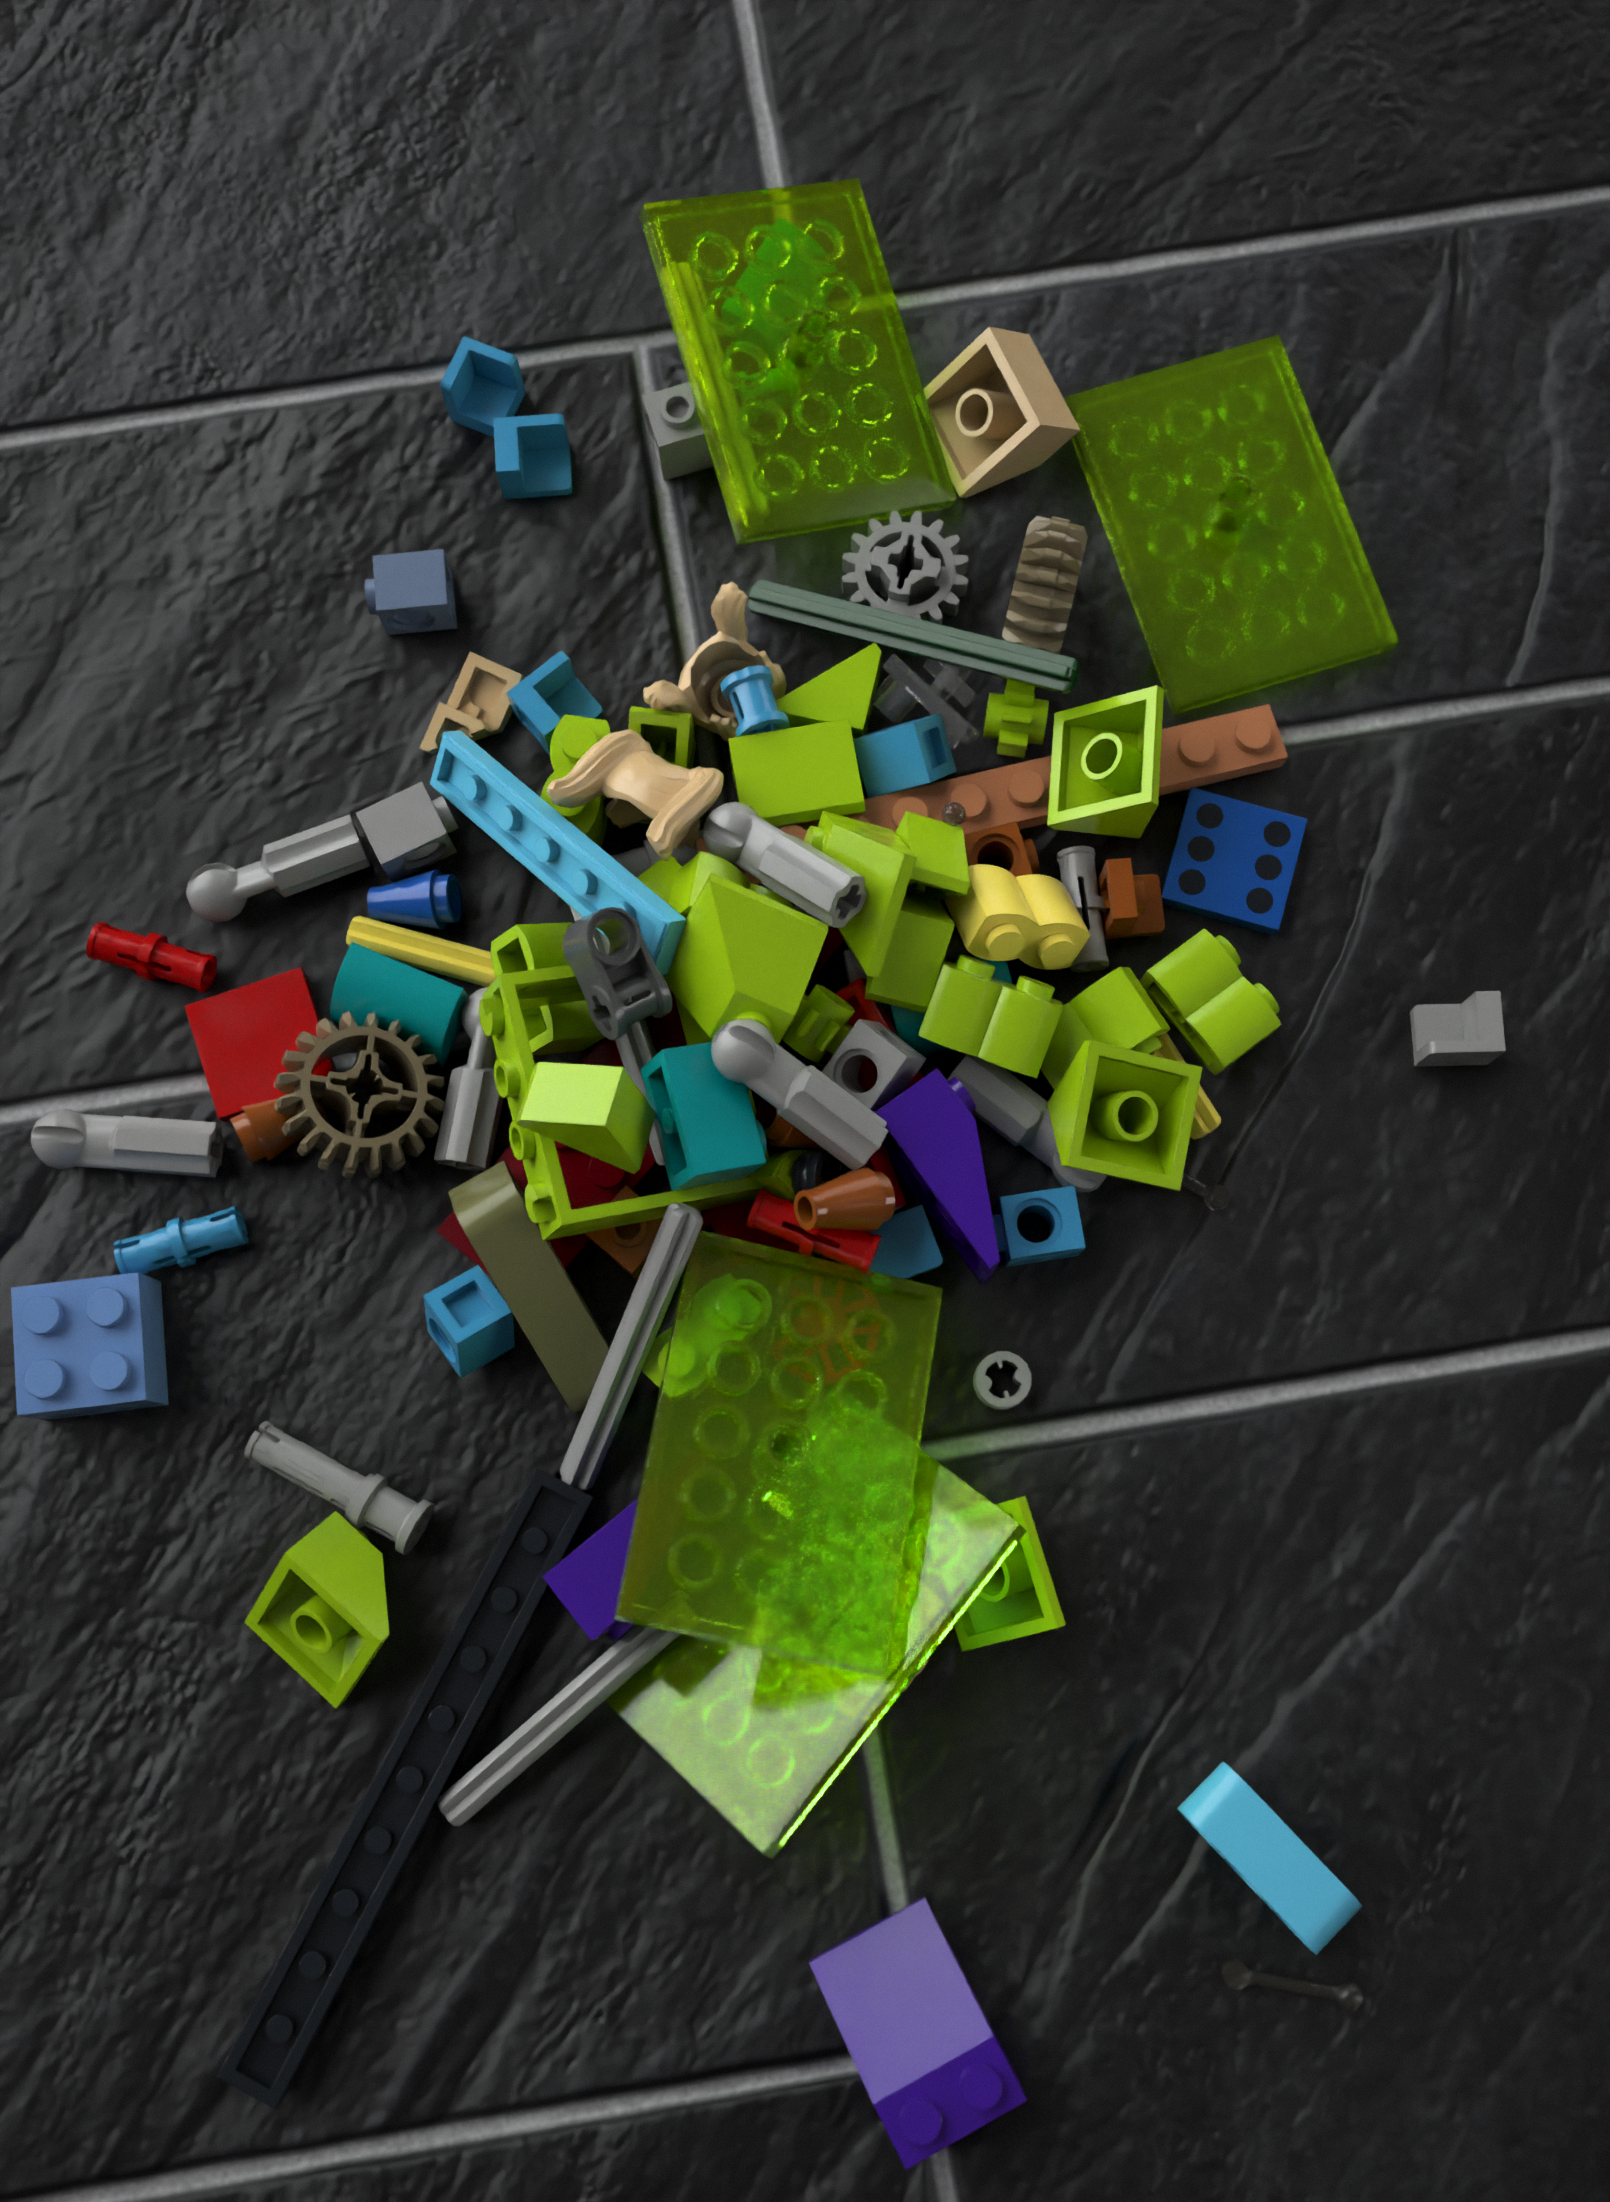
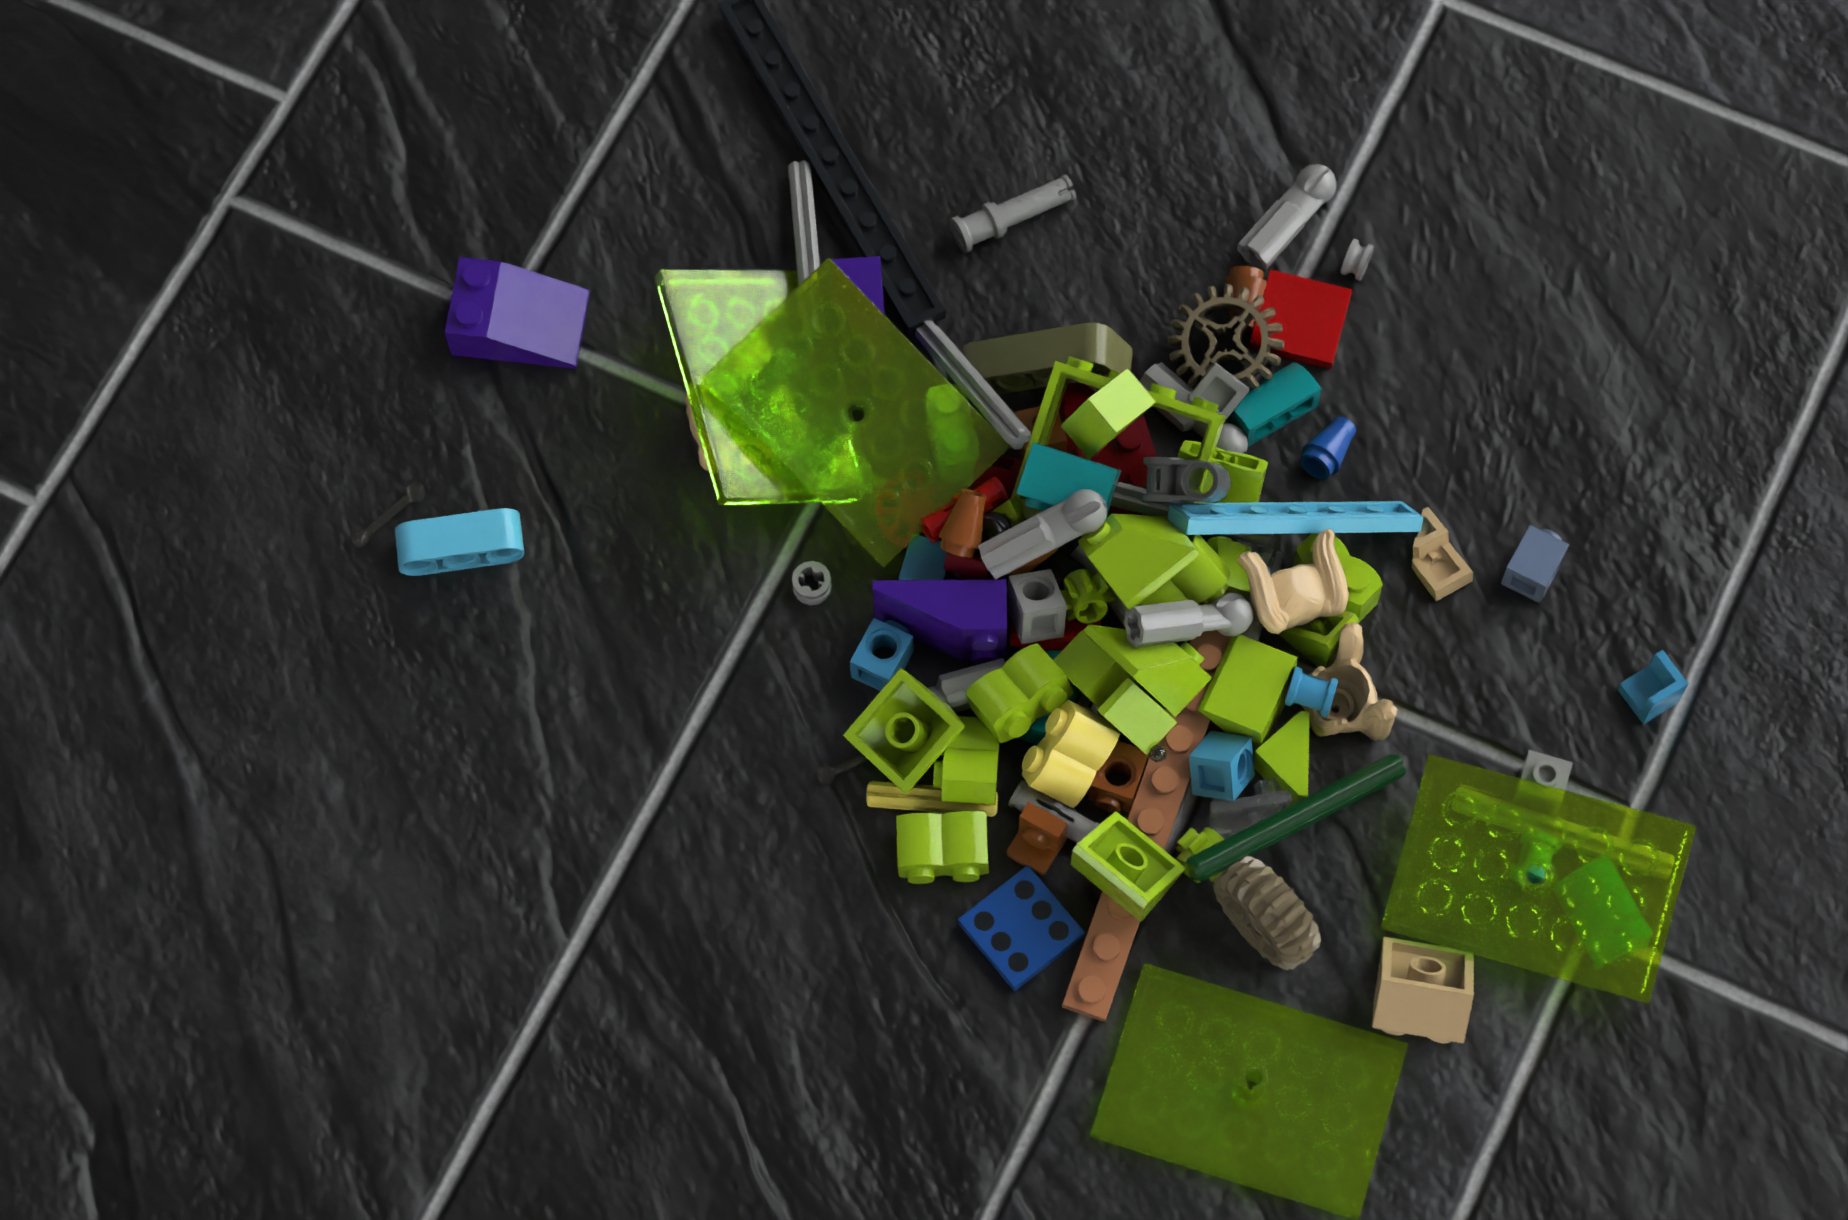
camera: 125 degrees right, 10 degrees down
(89, 1346) = (1181, 131): medium blue brick -> none
(139, 1024) = (1357, 259): none -> light grey bush
(151, 956) = (1396, 290): red pin -> none
(181, 1241) = (1210, 212): dark azure pin -> none
(286, 865) = (1401, 387): light grey piece -> none
(326, 1607) = (953, 167): lime slope -> none
(408, 831) = (1376, 467): light grey brick -> none
(423, 950) = (1299, 432): light yellow axle -> none
(441, 1048) = (1220, 388): none -> light grey plate
(469, 1321) = (1051, 312): dark azure brick -> none
(533, 456) = (1584, 688): dark azure panel -> none
(549, 695) = (1403, 599): dark azure panel -> none
(885, 556) = (1335, 869): light grey gear -> none
(1019, 1594) = (692, 509): lime slope -> none
(1459, 1032) = (818, 977): light grey panel -> none

